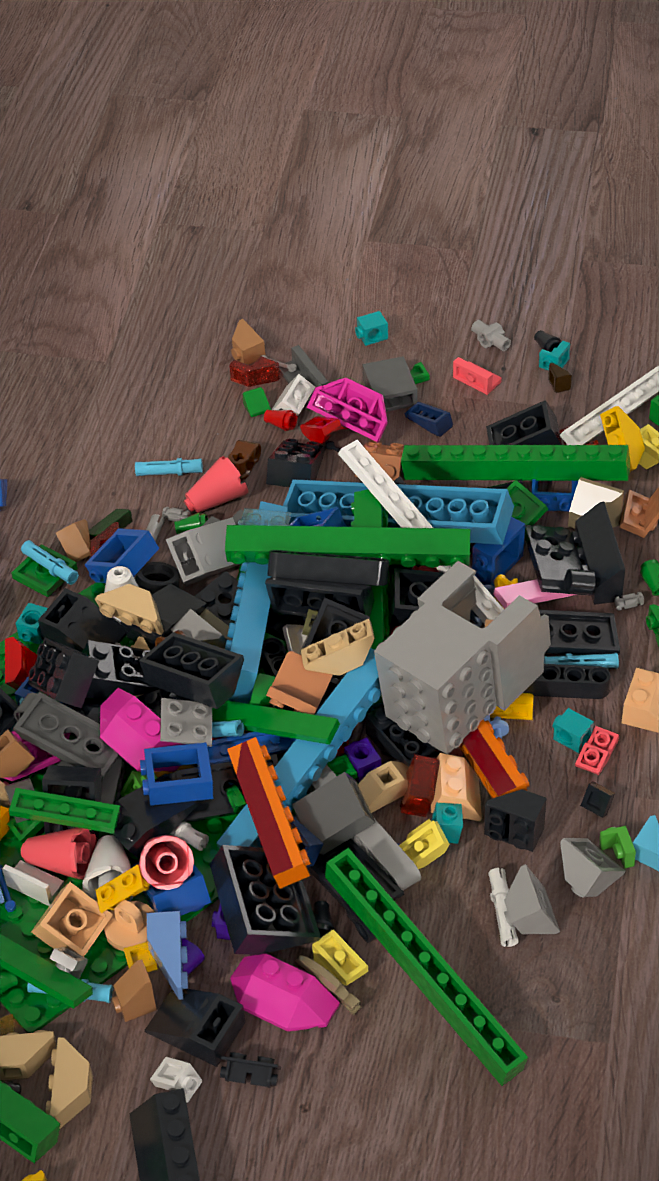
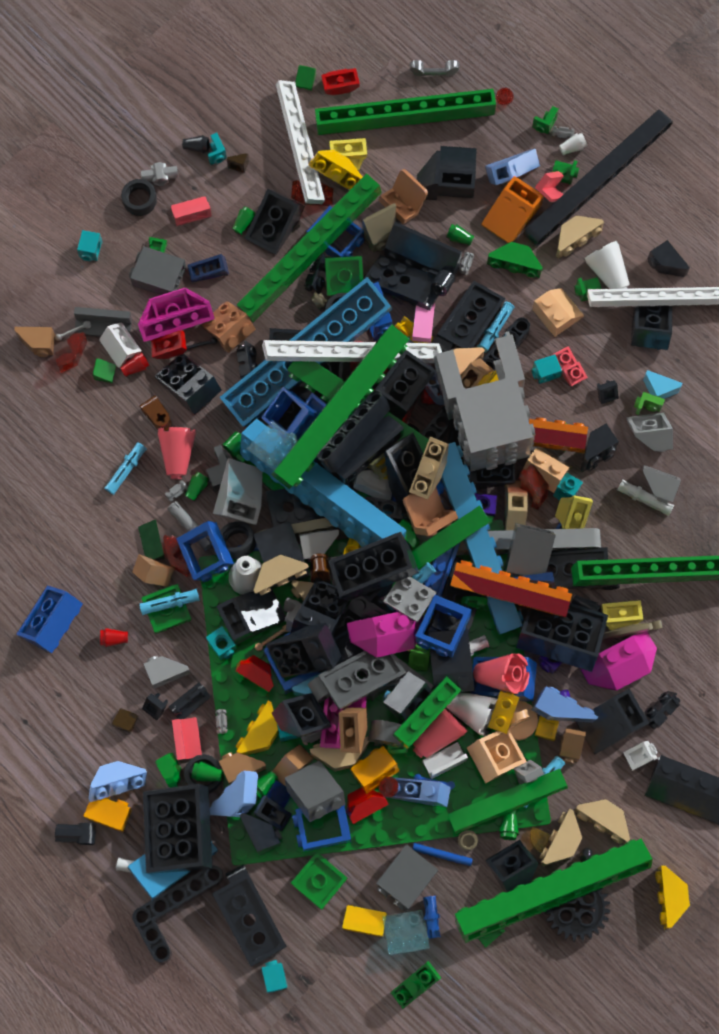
camera: 60 degrees left, 25 degrees up
(456, 324) = (139, 210): none -> black tyre
(501, 411) = (243, 219): none -> green cone

